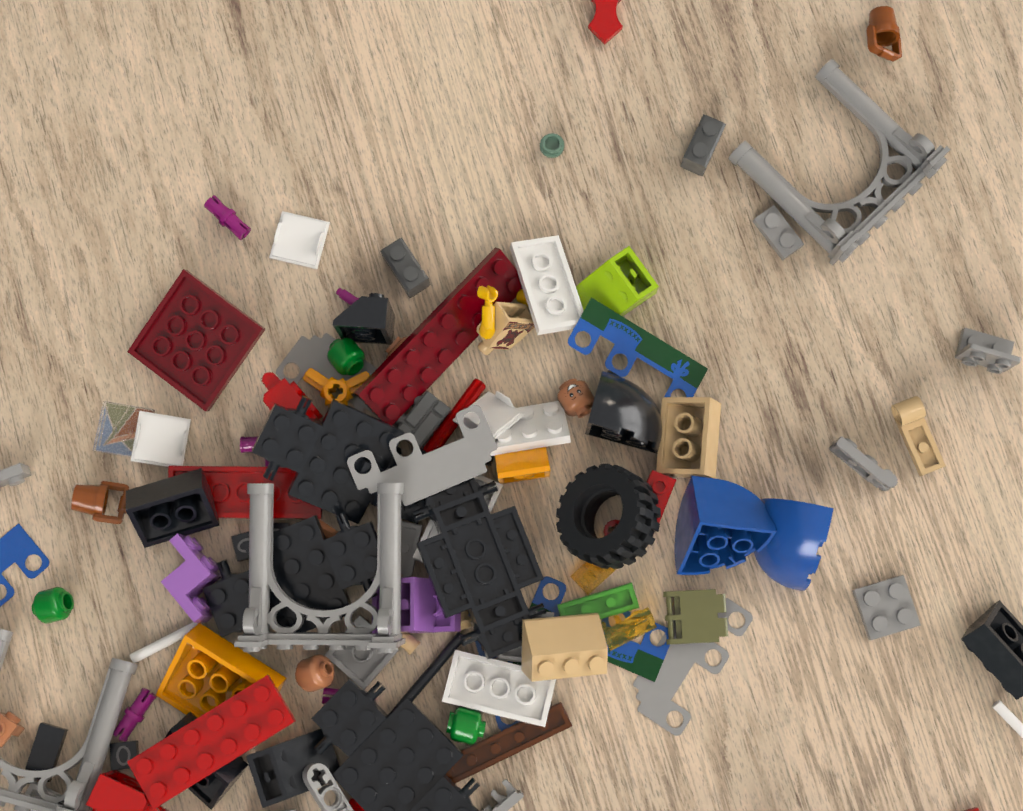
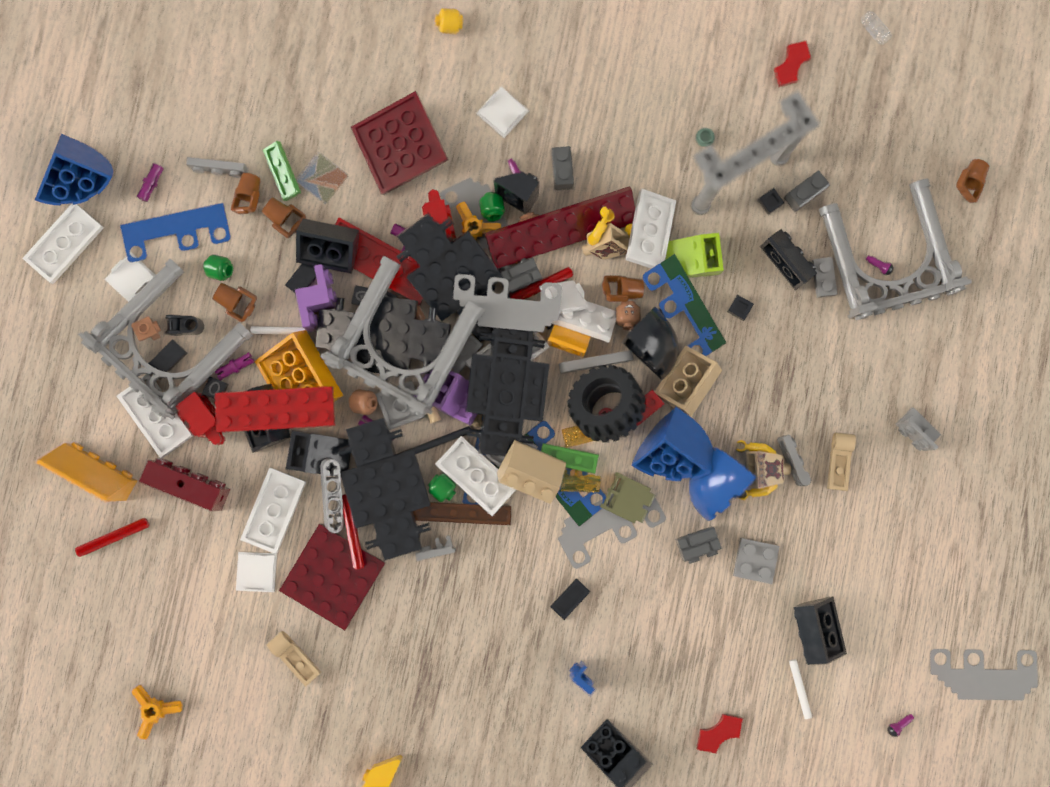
camera: 25 degrees right, 5 degrees up
(42, 493) = (247, 191): none -> dark orange piece
(42, 700) = (180, 325): none -> black piece
(71, 447) = (281, 171): none -> tile
(85, 634) = (229, 299): none -> dark orange piece
(160, 439) = (342, 196): white piece -> none
(161, 563) = (301, 278): none -> black tile
(180, 168) = (449, 21): none -> yellow head
(227, 217) = (462, 71): magenta pin -> none
(556, 368) = (626, 288): none -> dark orange piece
(567, 473) = (594, 362): none -> light grey beam
(638, 114) = (776, 145): none -> light grey arch
(668, 178) = (771, 201): none -> black tile
(692, 776) = (570, 599): none -> black tile
(701, 319) = (740, 307): none -> black plate
(726, 234) = (788, 259): none -> black slope
(808, 625) = (698, 544): none -> dark grey brick
(834, 489) = (766, 466): none -> torso
(841, 184) = (885, 267): none -> magenta piece

